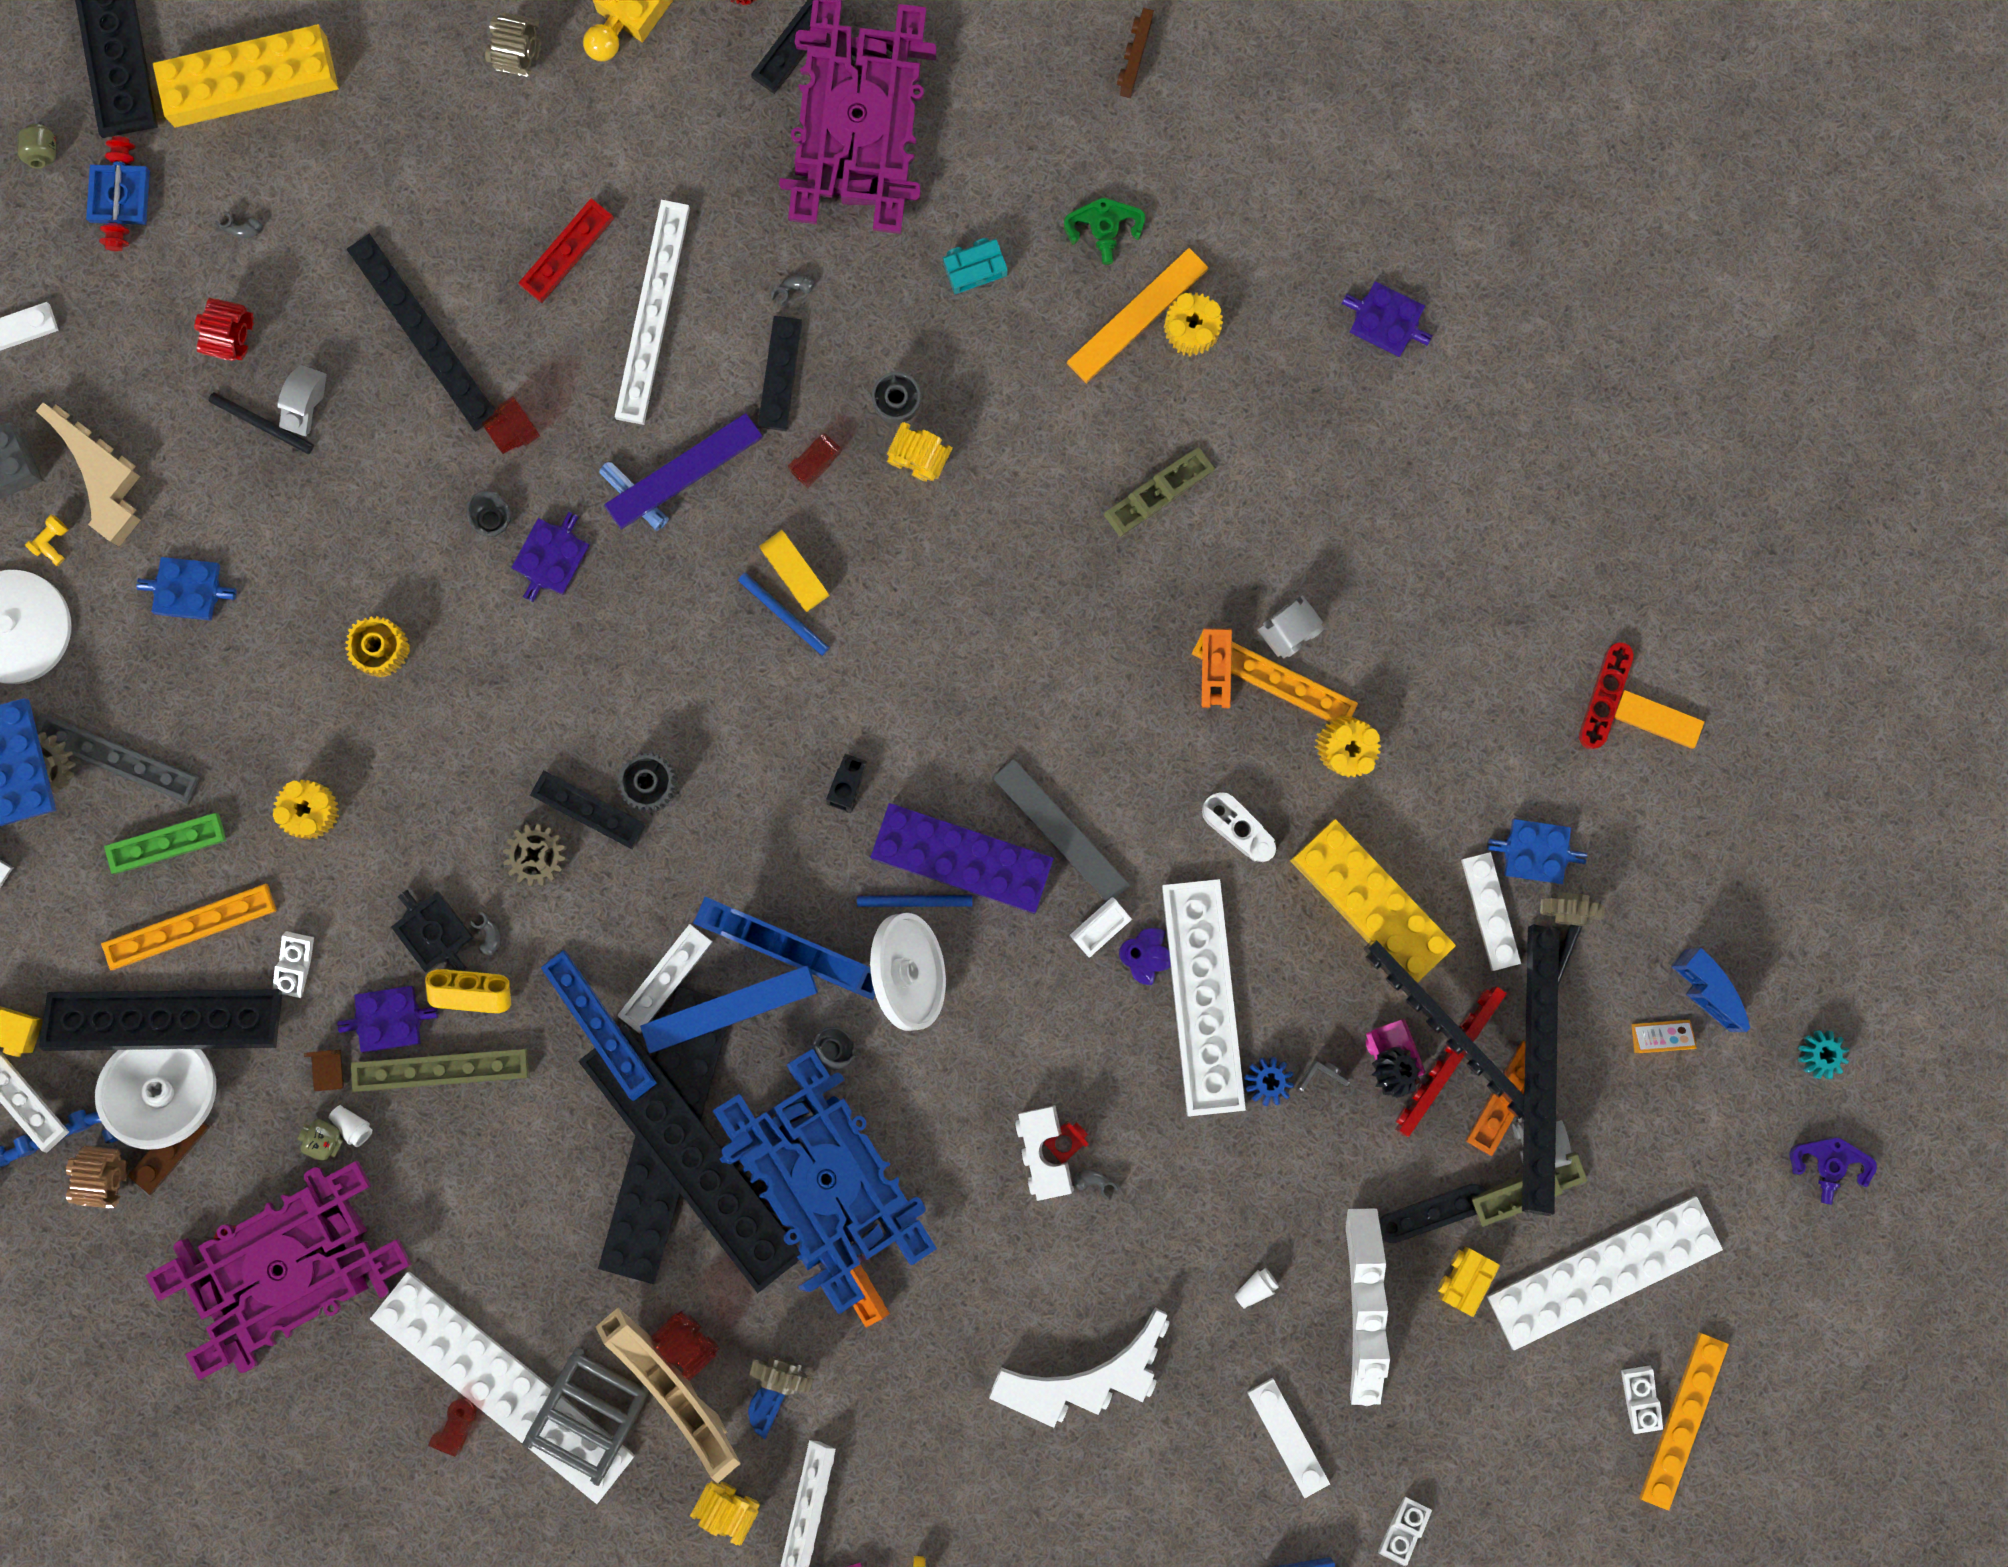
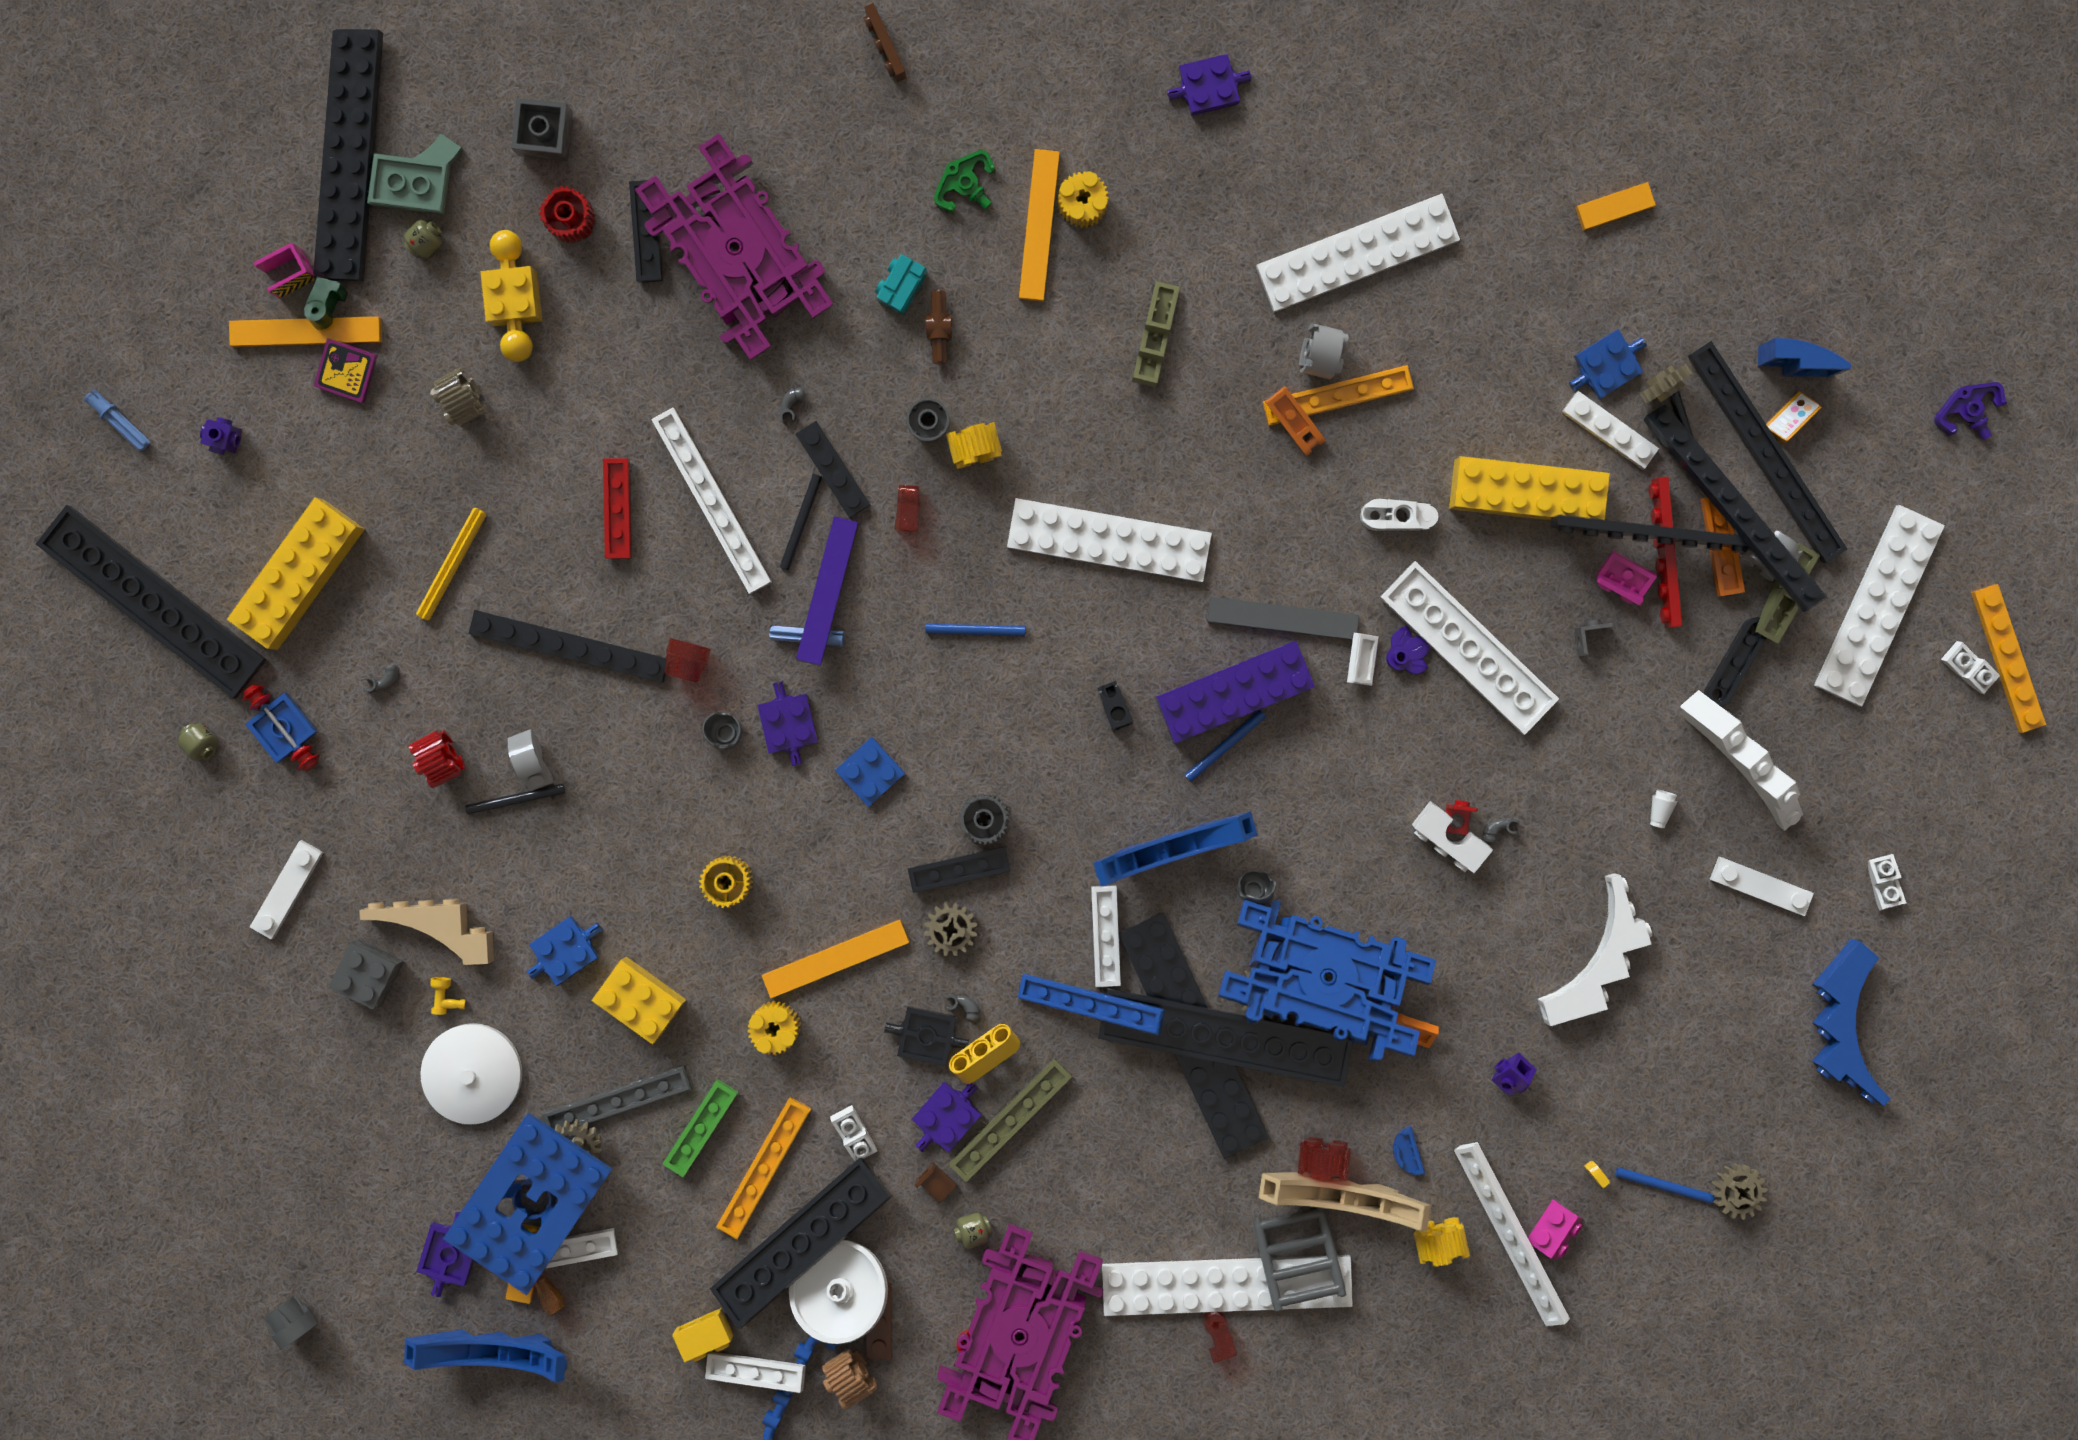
camera: 30 degrees left, 5 degrees up
(211, 685) = (639, 1000): none -> yellow brick
(351, 1127) = (985, 1205): white cone -> none
(384, 179) = (451, 564): none -> yellow axle
(413, 796) = (835, 958): none -> light orange tile
(585, 659) = (870, 771): none -> blue plate
(713, 394) = (800, 521): none -> black bar
(729, 1009) = (1167, 921): blue slope -> none
(781, 1375) = (1404, 1126): dark tan gear -> none
(794, 570) = (958, 595): yellow beam -> none
(908, 971) = (1266, 797): white dish -> none
(919, 1415) = (1513, 1074): none -> dark purple brick
(967, 635) = (1109, 540): none -> white plate
(975, 328) = (938, 327): none -> reddish brown axle
(1276, 1074) = (1554, 676): blue gear -> none
(1362, 751) = (1428, 400): yellow brick -> none
(1396, 570) = (1357, 253): none -> white plate
(1396, 1072) = (1640, 590): black gear -> none
(1467, 1281) = (1795, 686): yellow brick -> none
(1601, 694) = (1572, 218): red beam -> none
(1615, 1049) = (1767, 452): none -> black plate
(1812, 1054) = (1898, 340): teal gear -> none

